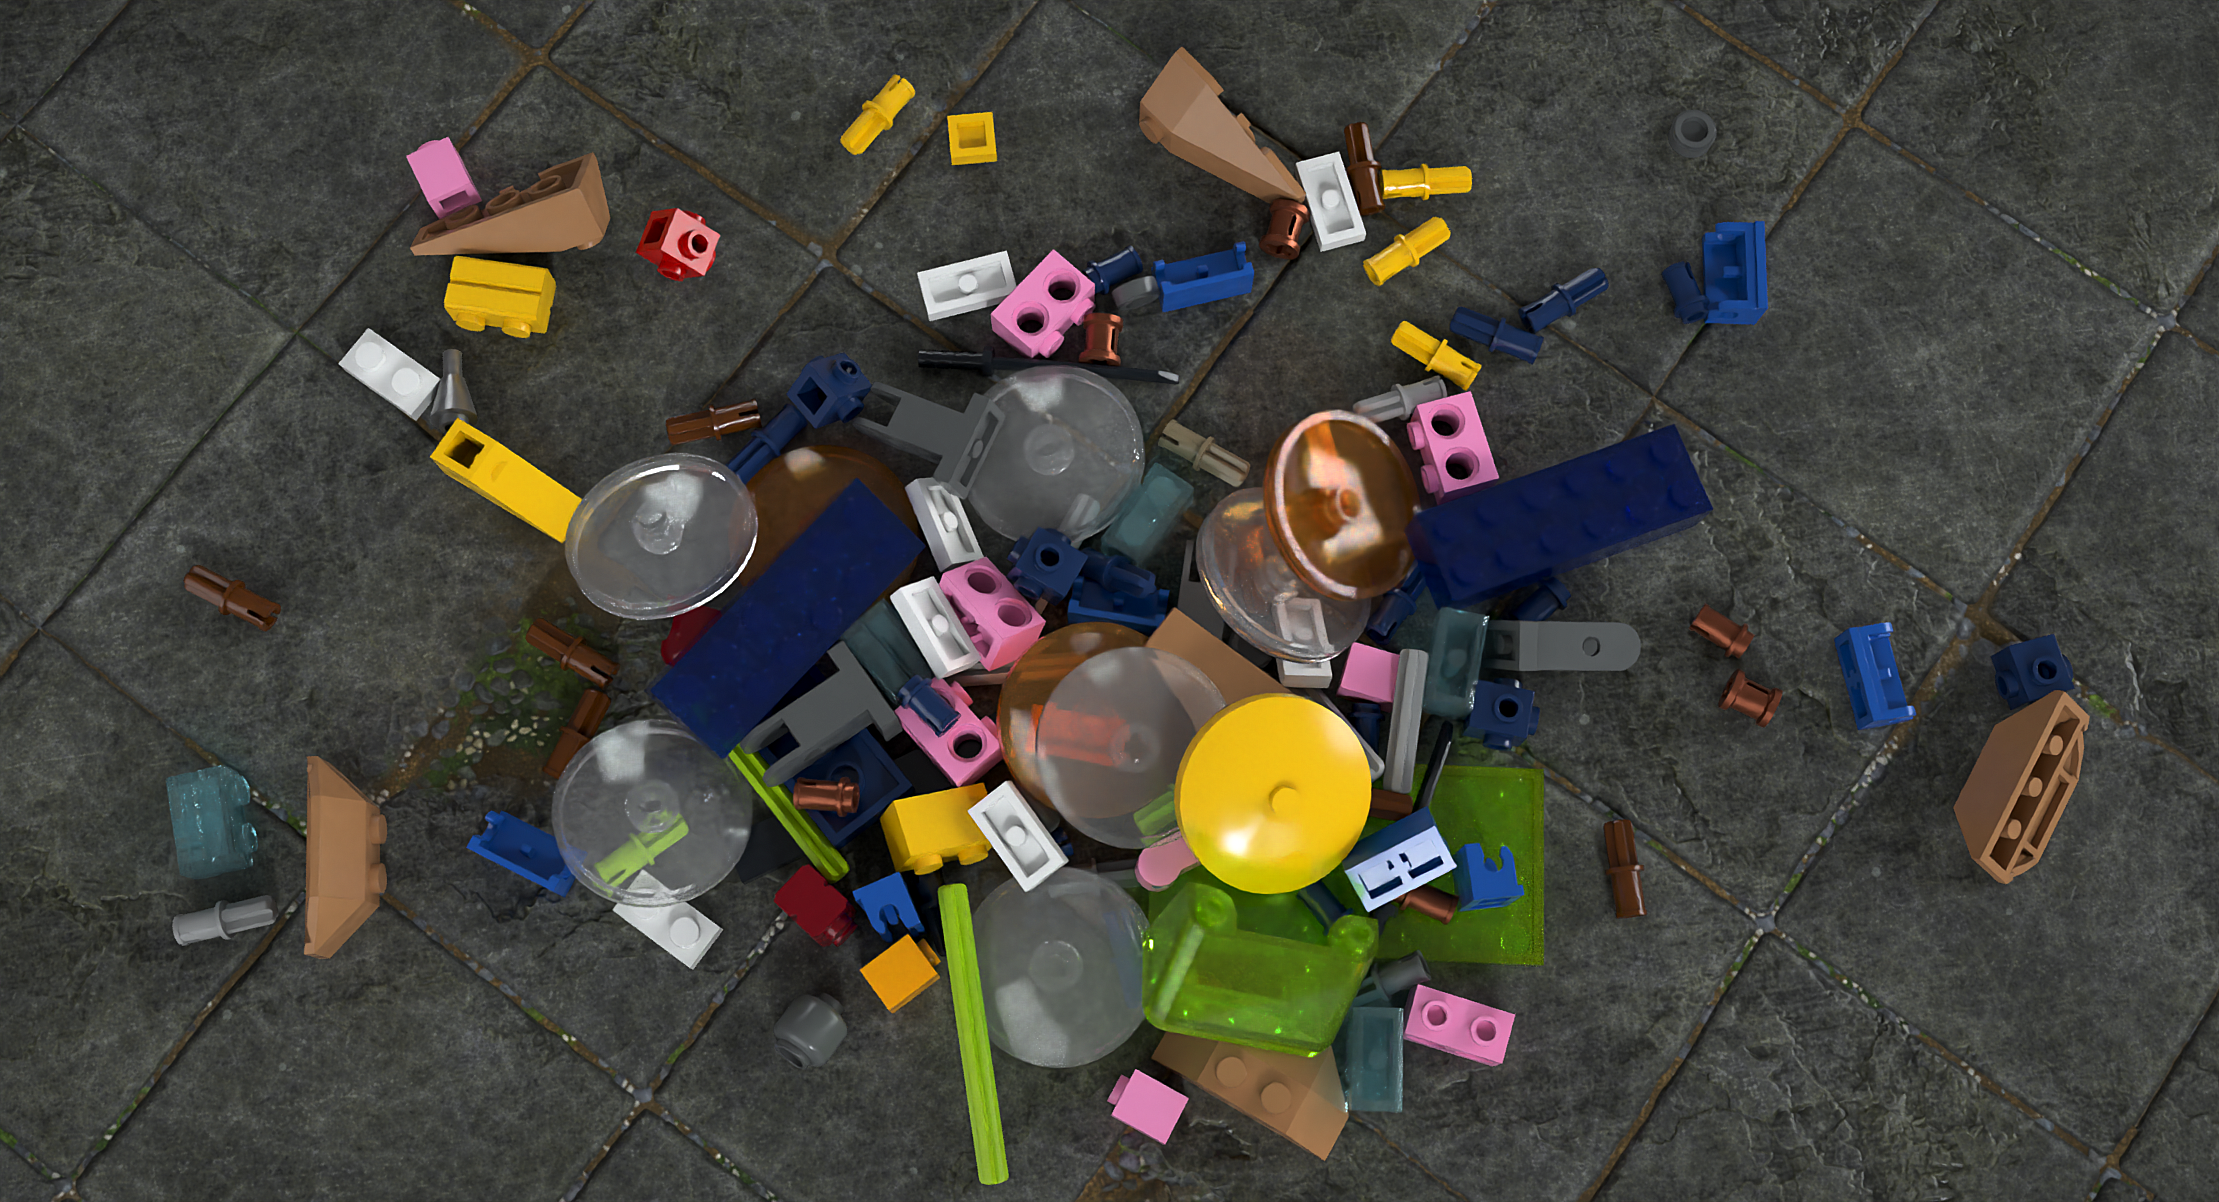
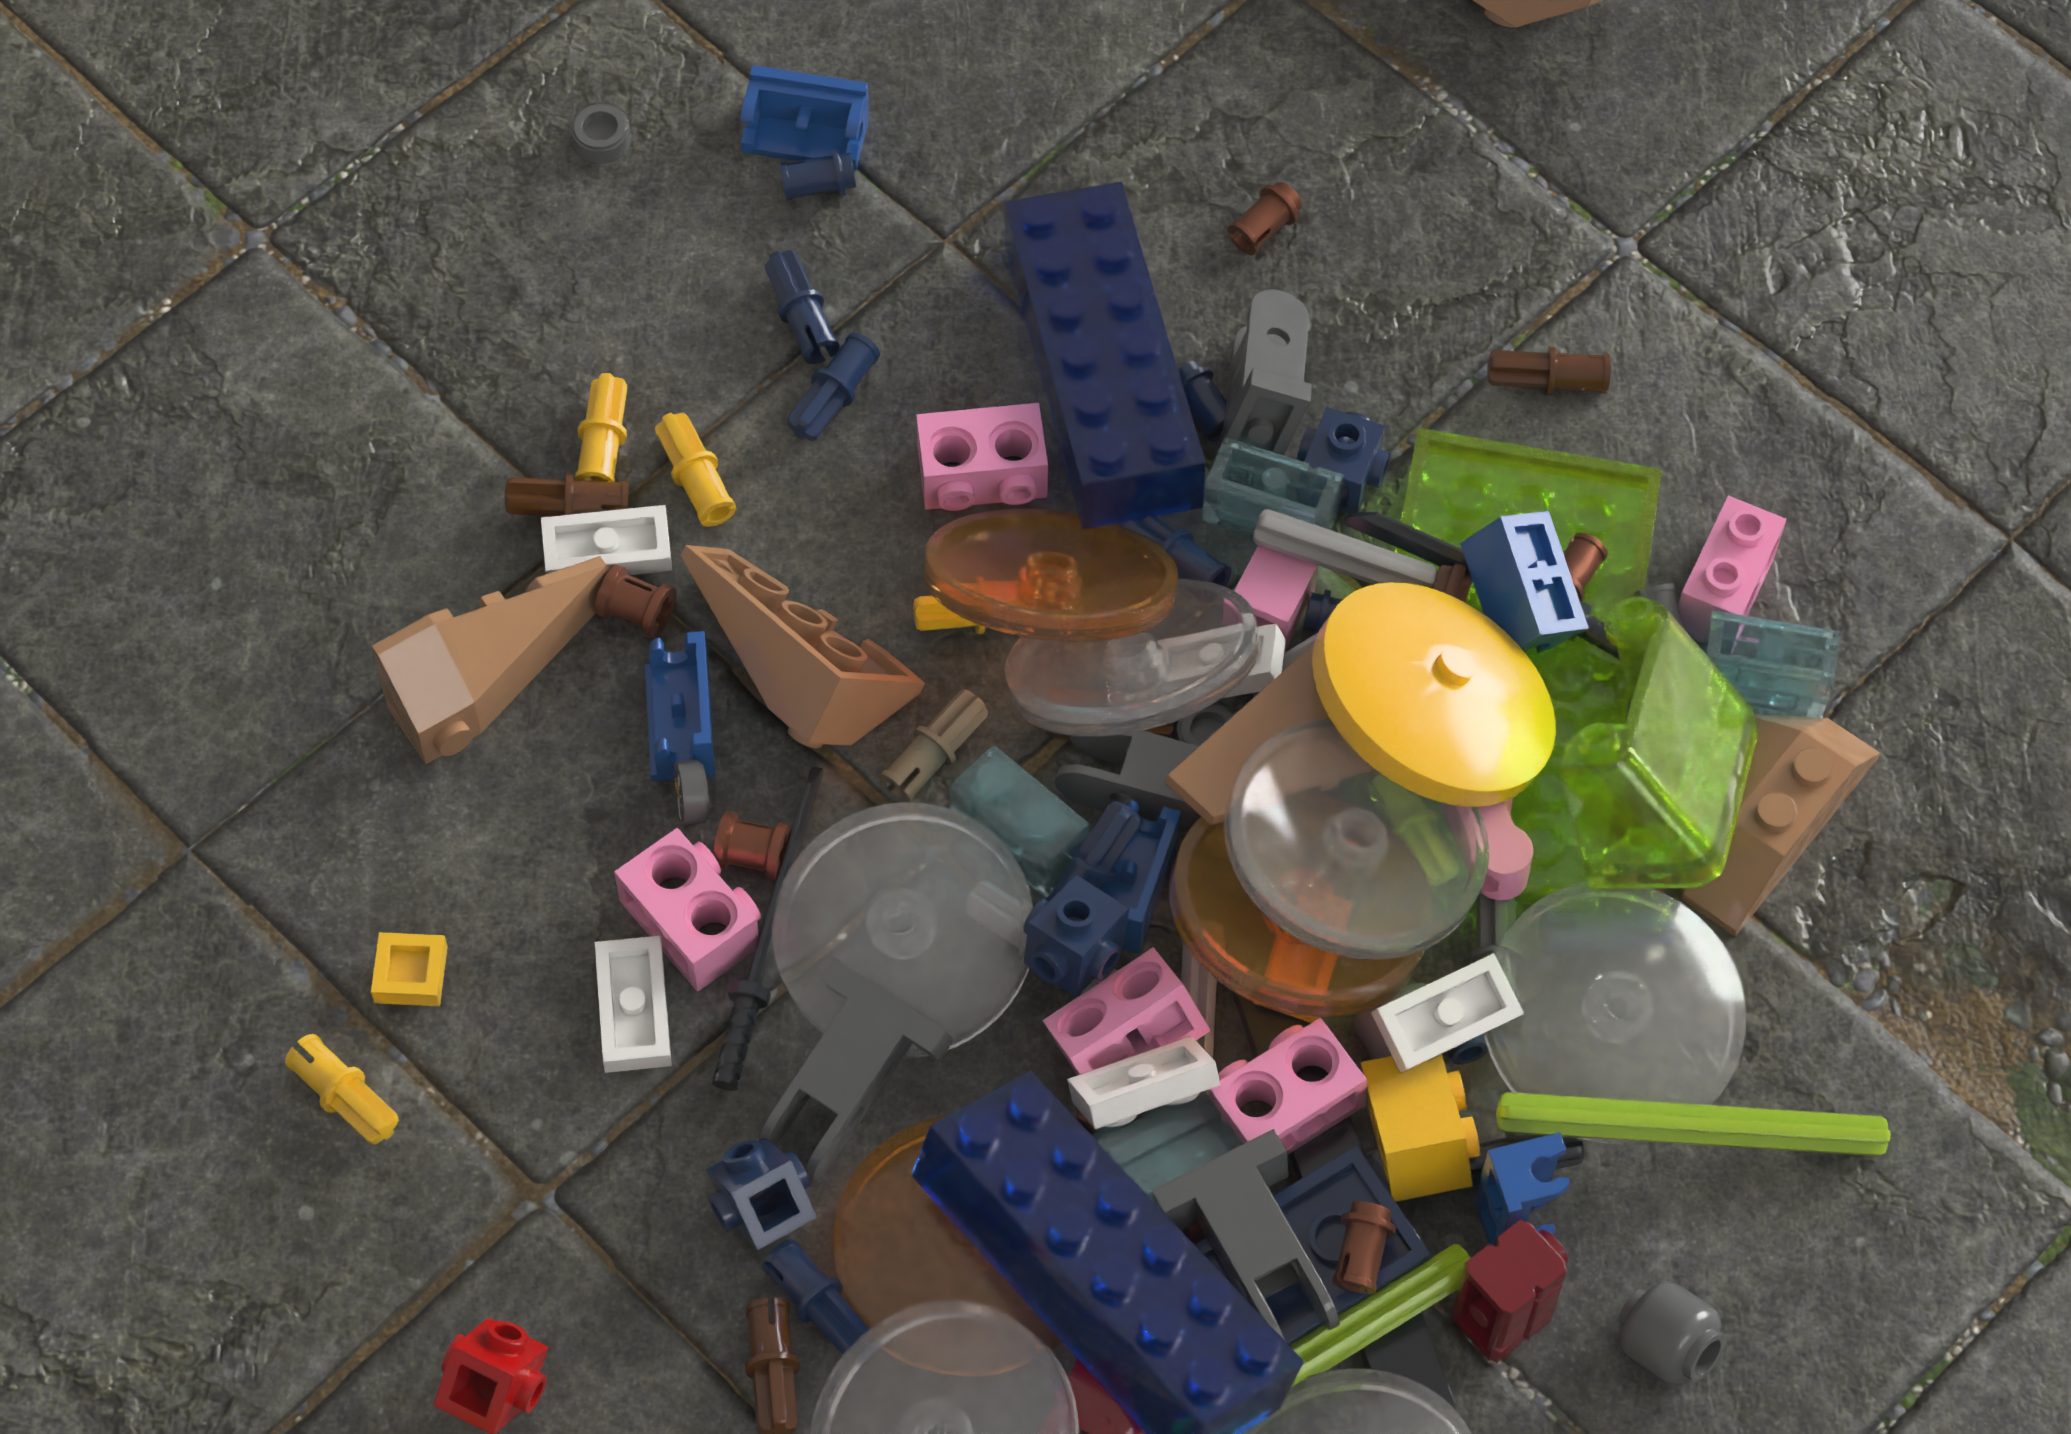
camera: 80 degrees left, 15 degrees down
(902, 972) = (1604, 1209): light orange brick -> none
(928, 705) = (1258, 1092): dark blue pin -> none
(943, 524) = (960, 1080): white plate -> none
(1113, 269) = (644, 813): dark blue pin -> none
(1147, 1105) = (1802, 934): bright pink brick -> none
(1254, 353) = (798, 663): none -> medium nougat wedge
(1323, 904) = (1584, 676): pin -> none
(1401, 400) = (904, 506): light grey axle -> none
(1435, 355) = (849, 457): yellow axle -> none
(1481, 883) = (1571, 488): blue hinge -> none
(1750, 698) = (1354, 203): copper bush -> none
(1872, 676) = (1344, 82): blue hinge -> none

